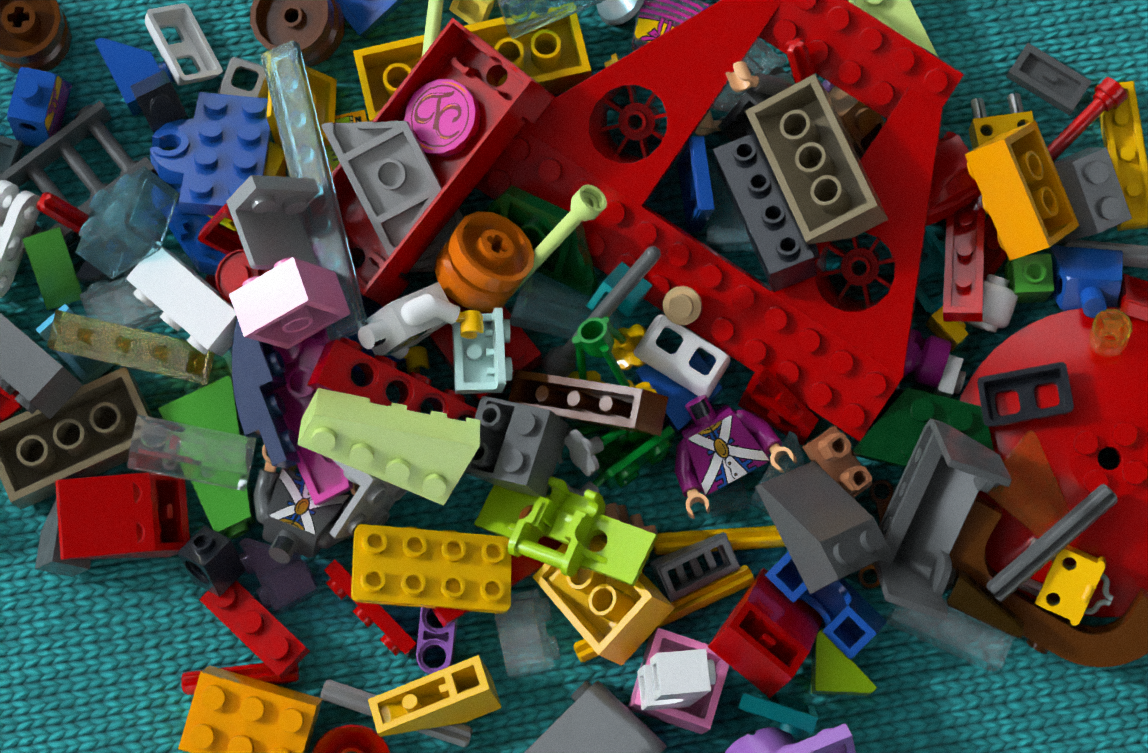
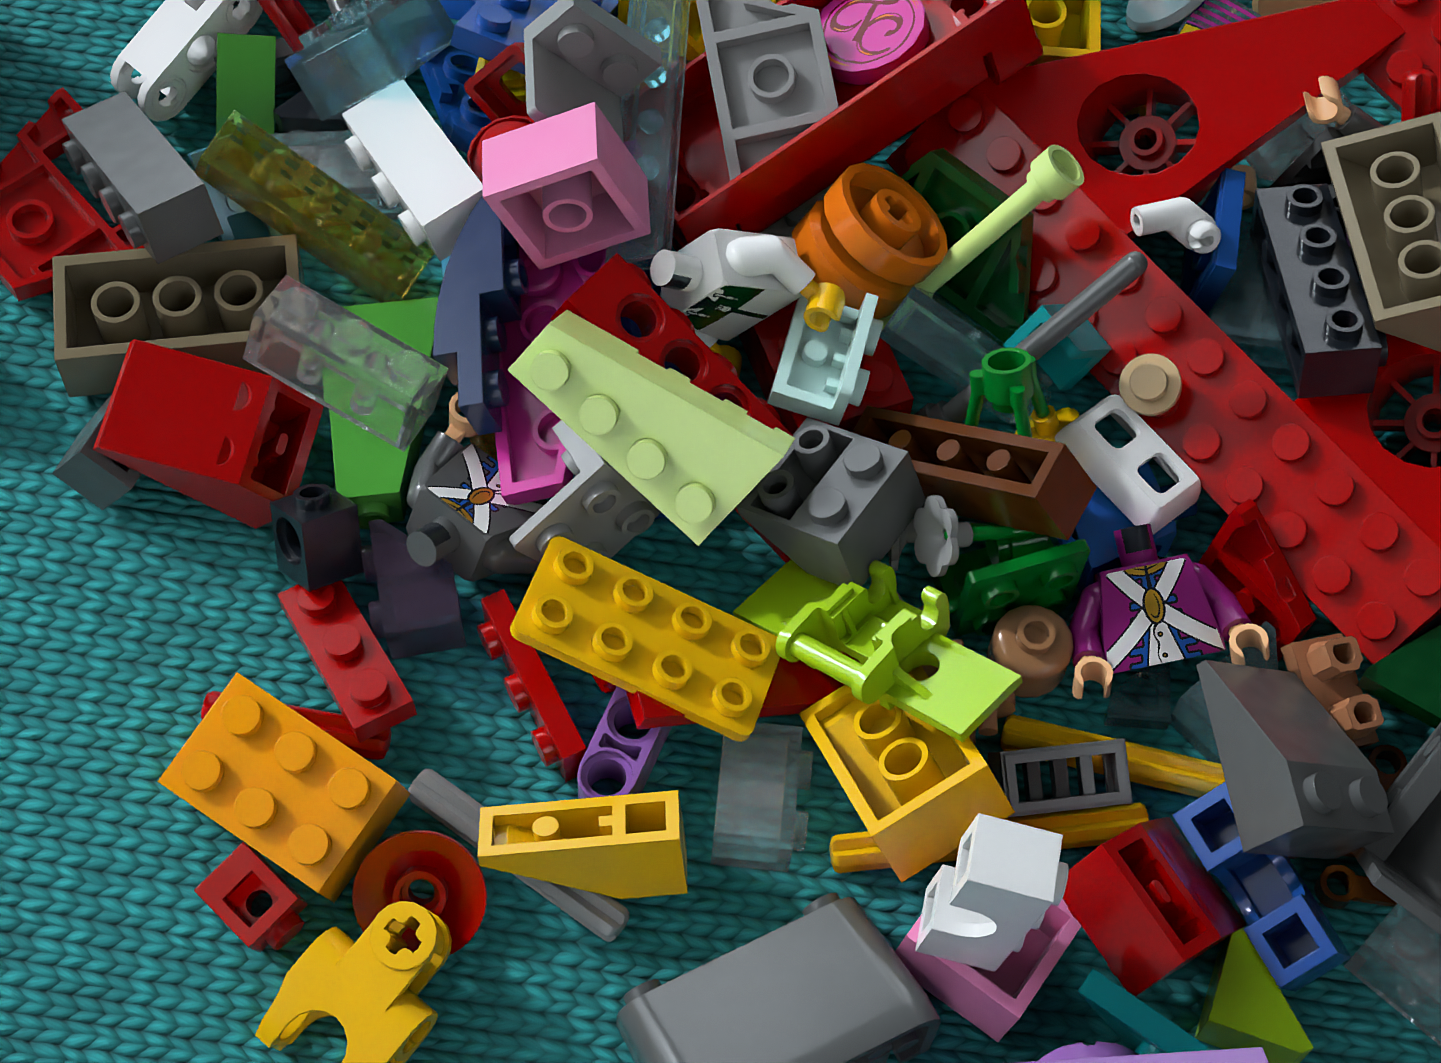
camera: 15 degrees right, 15 degrees down
(656, 492) = (1034, 645): none -> medium nougat head
(671, 186) = (1181, 220): none -> white arm

